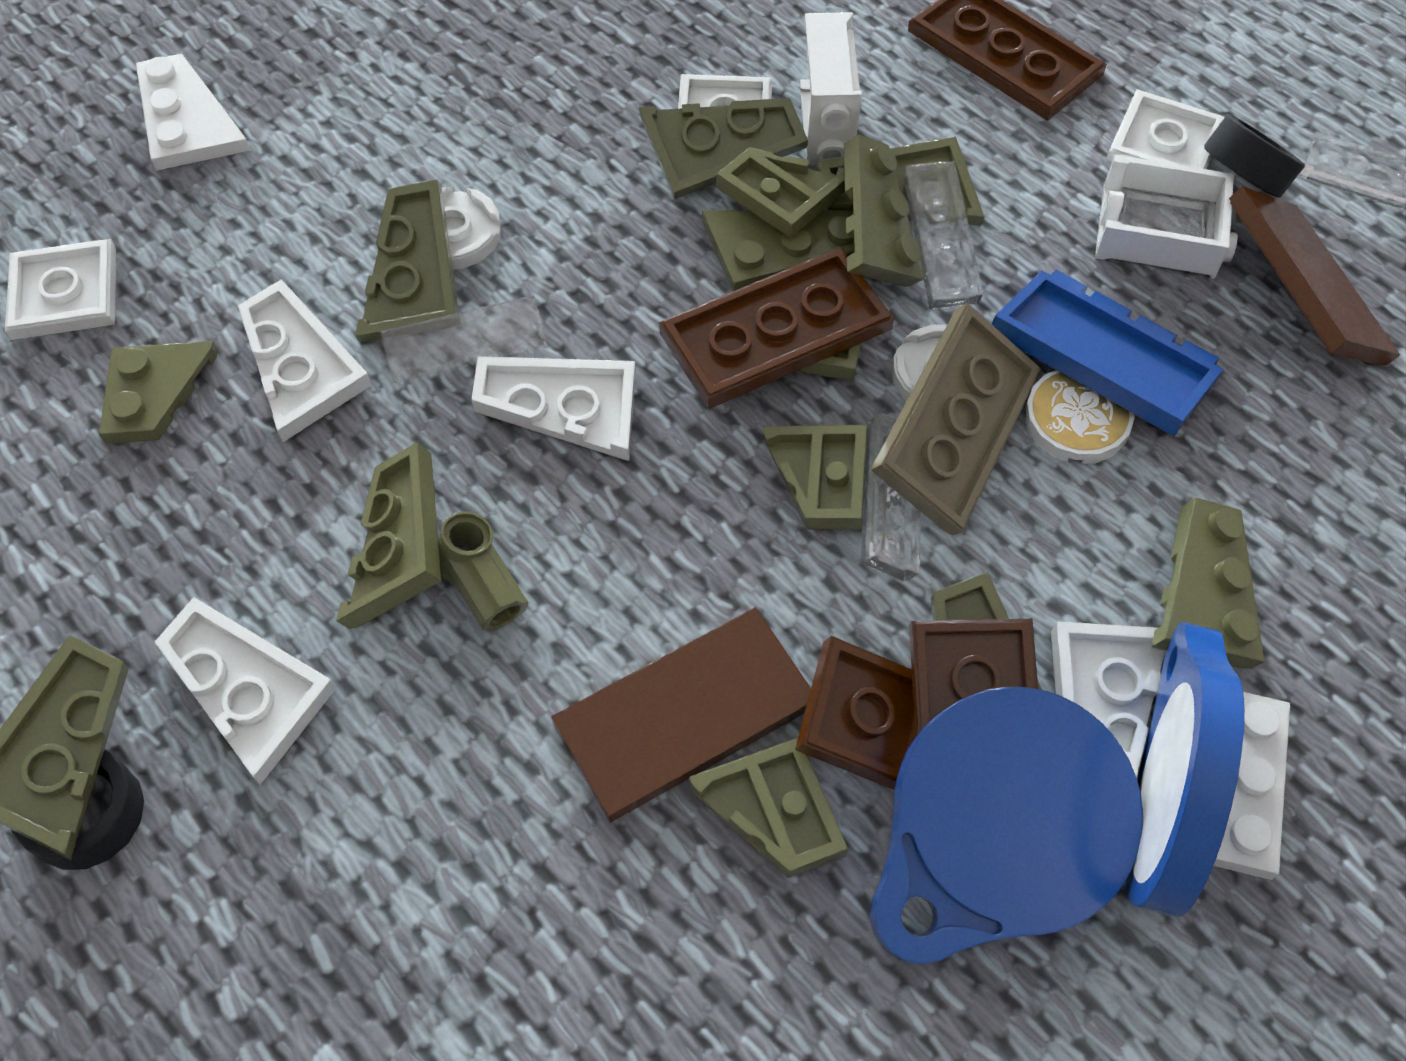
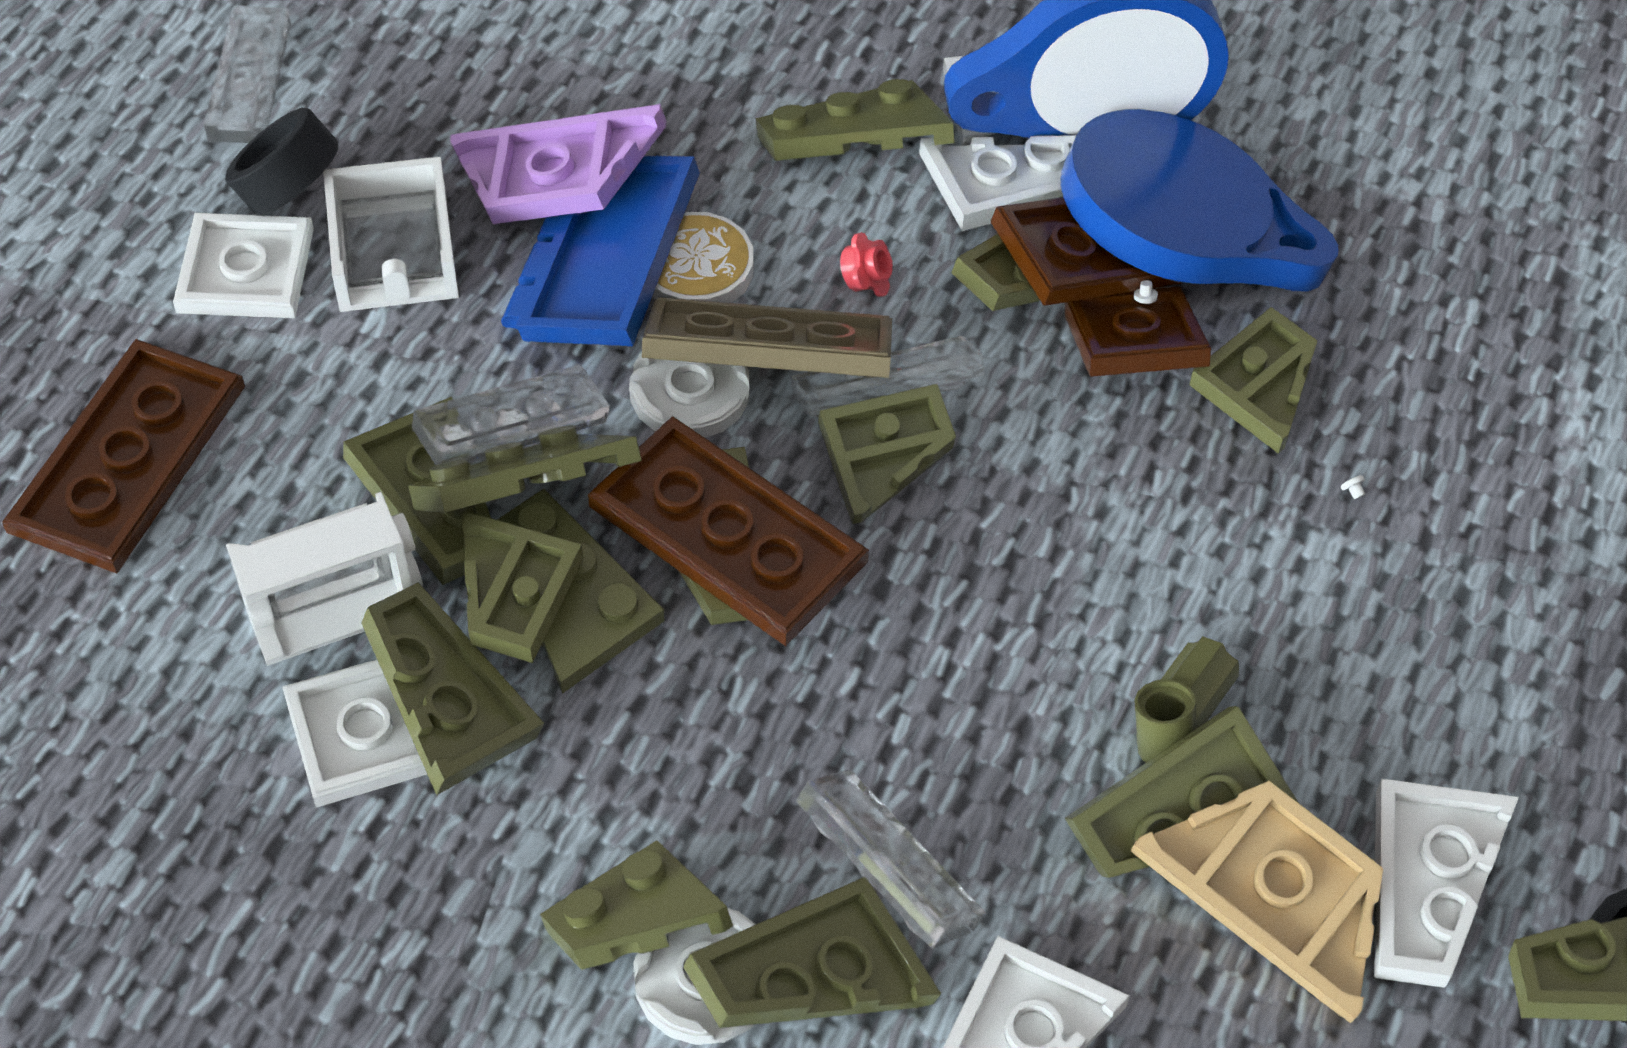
camera: 115 degrees left, 5 degrees down
(294, 560) = (1279, 886): none -> tan wing
(509, 198) = (633, 909): none -> olive wing
(561, 398) = (916, 722): white wing -> none
(626, 836) = (1354, 486): none -> white piece
(682, 713) = (1212, 481): reddish brown tile -> none
(903, 738) = (1145, 294): none -> white piece
(1034, 517) = (866, 265): none -> coral plate
(1208, 333) = (557, 162): none -> lavender wing
(1313, 278) = (441, 96): reddish brown tile -> none

